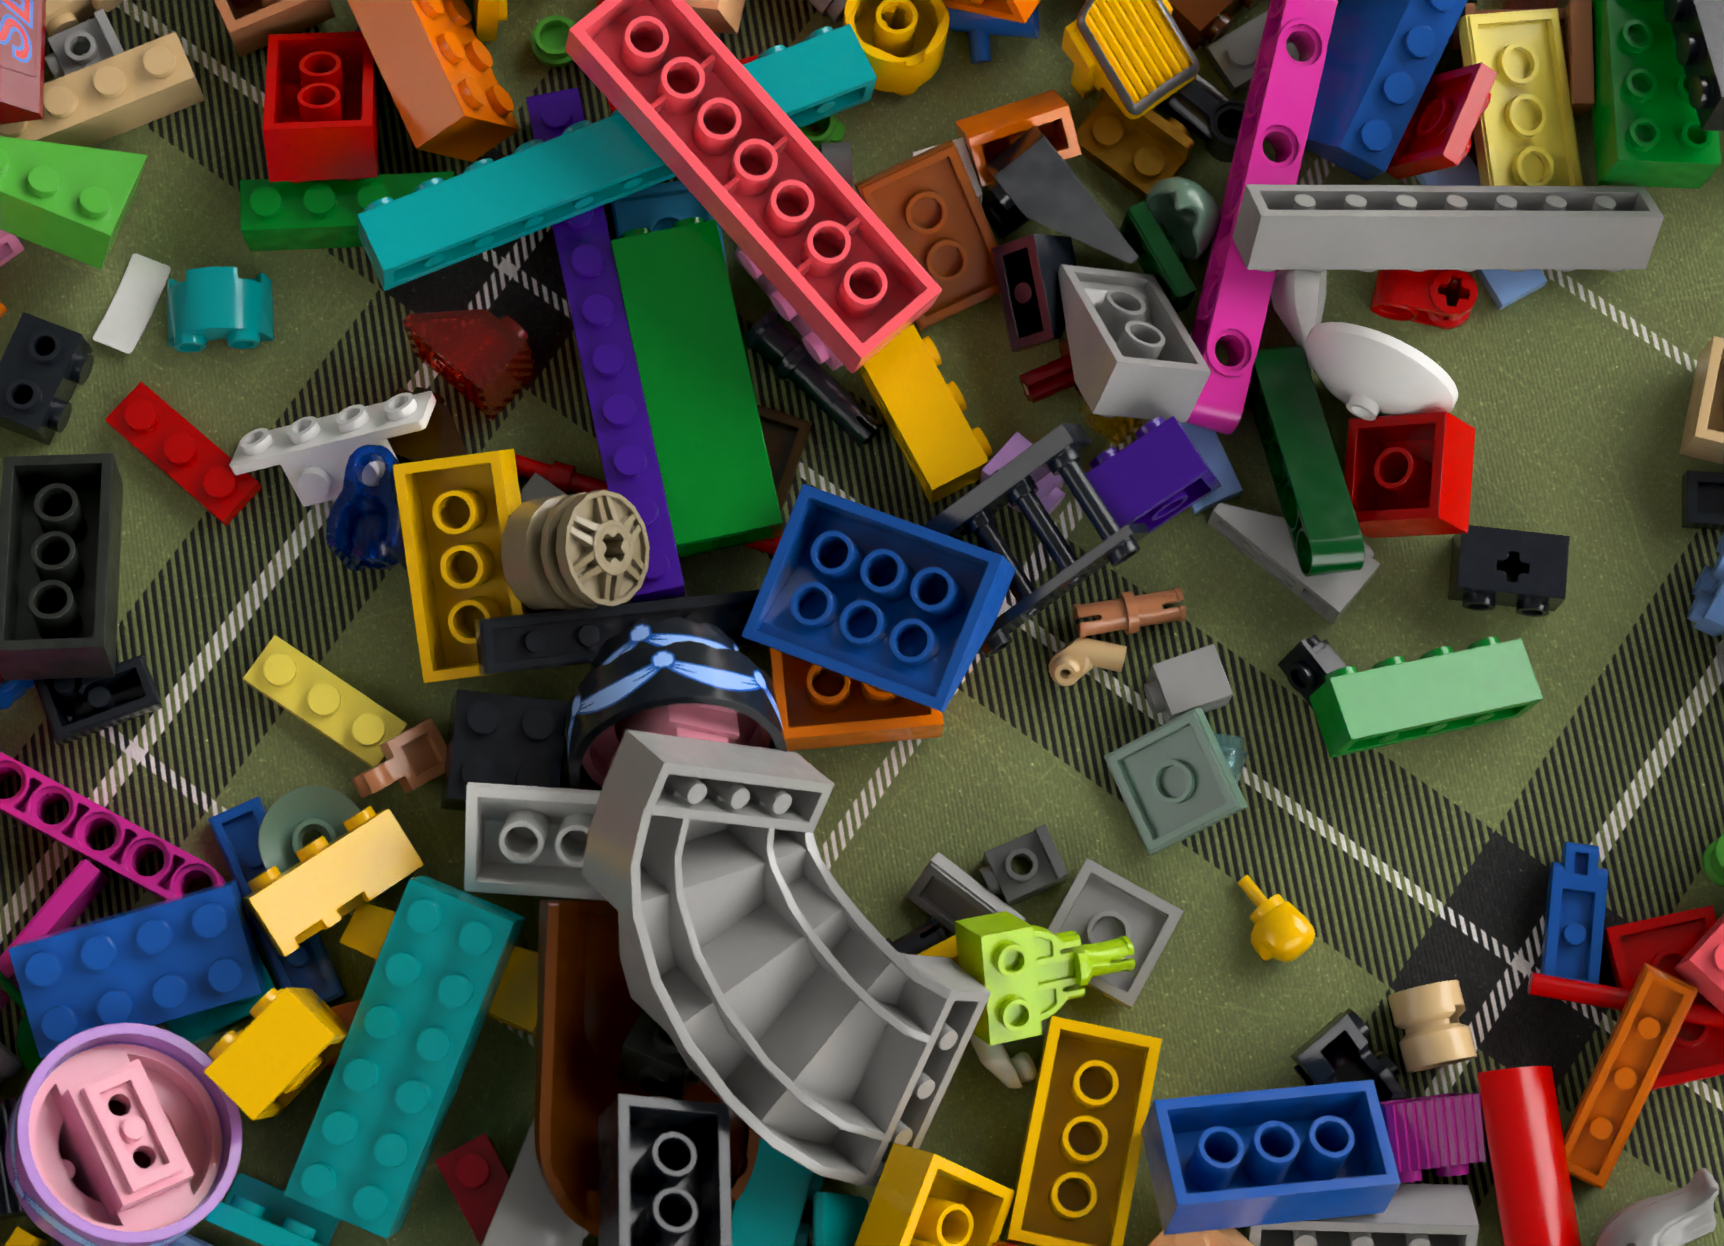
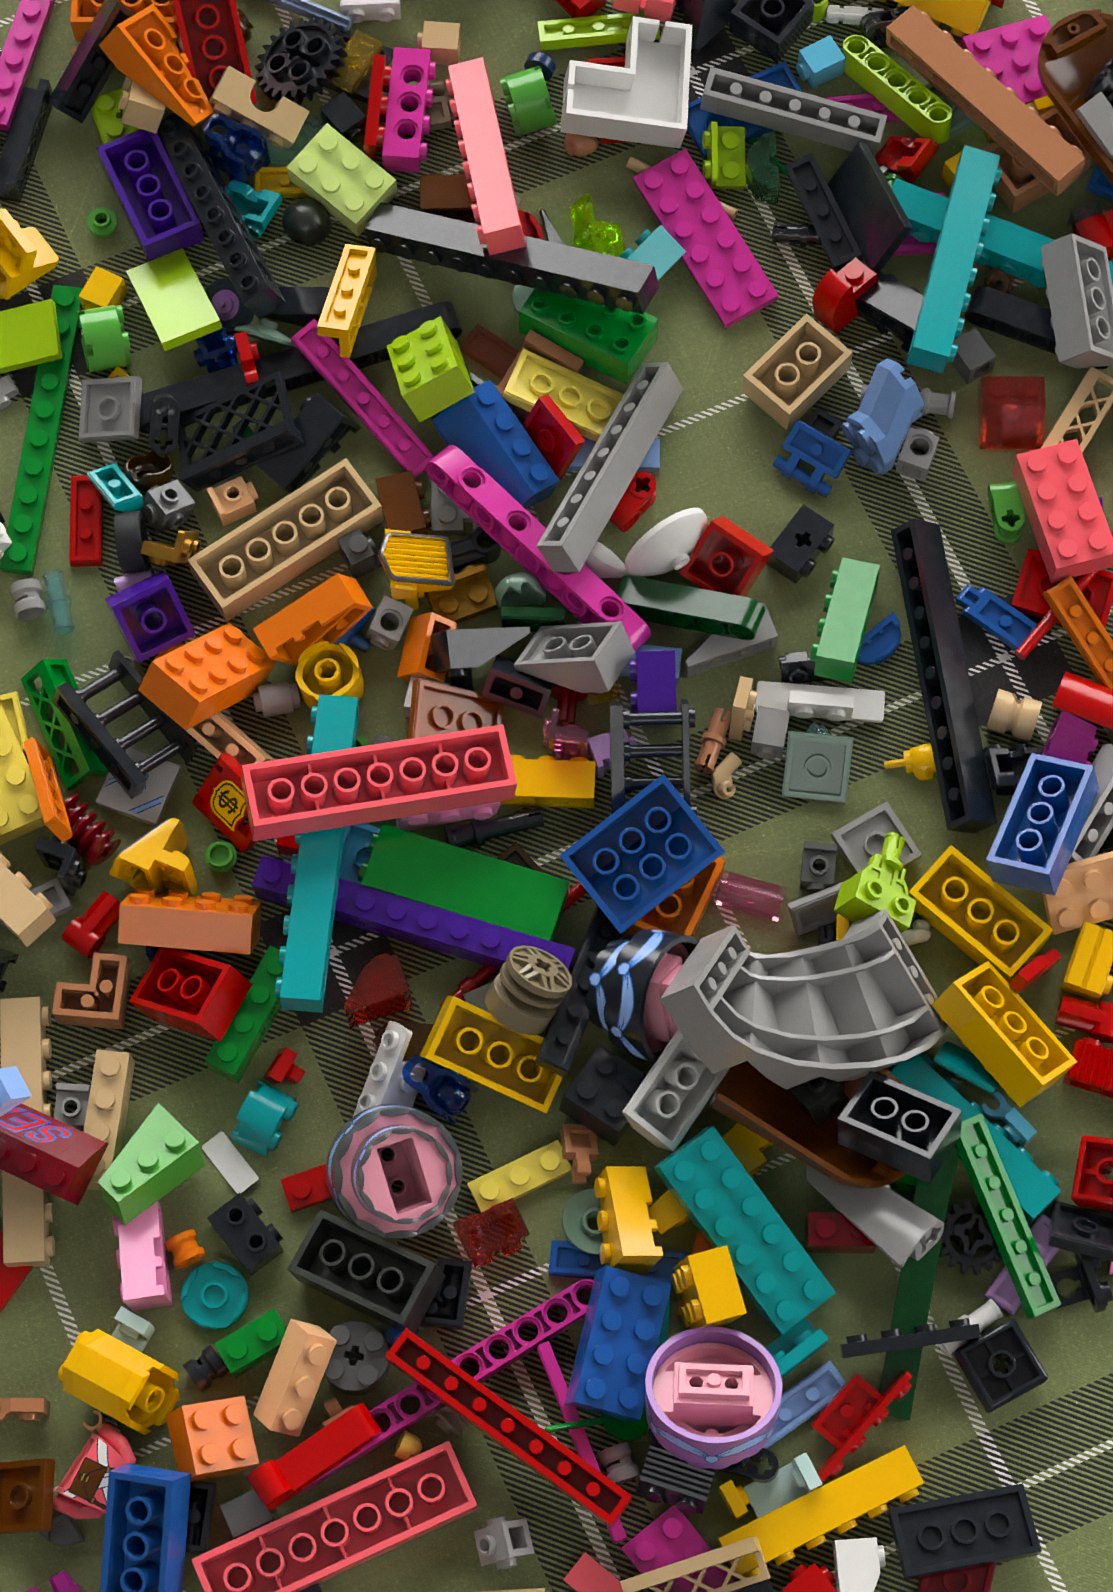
camera: 55 degrees left, 5 degrees down
(190, 486) = (421, 1158): none -> piece
(215, 704) = (491, 1232): none -> clear red cylinder
(299, 296) = (283, 1068): none -> red tile
(926, 792) = (750, 895): none -> clear pink tile
(993, 396) = (564, 741): none -> clear pink bracket
(1044, 48) = (395, 612): none -> light grey brick
(1187, 619) = (742, 709): none -> tan plate
(1285, 738) = (822, 701): none -> white bracket
(1428, 888) = (943, 677): none -> black brick
(1431, 769) = (881, 641): none -> blue tile
(1668, 511) = (816, 449): none -> blue plate

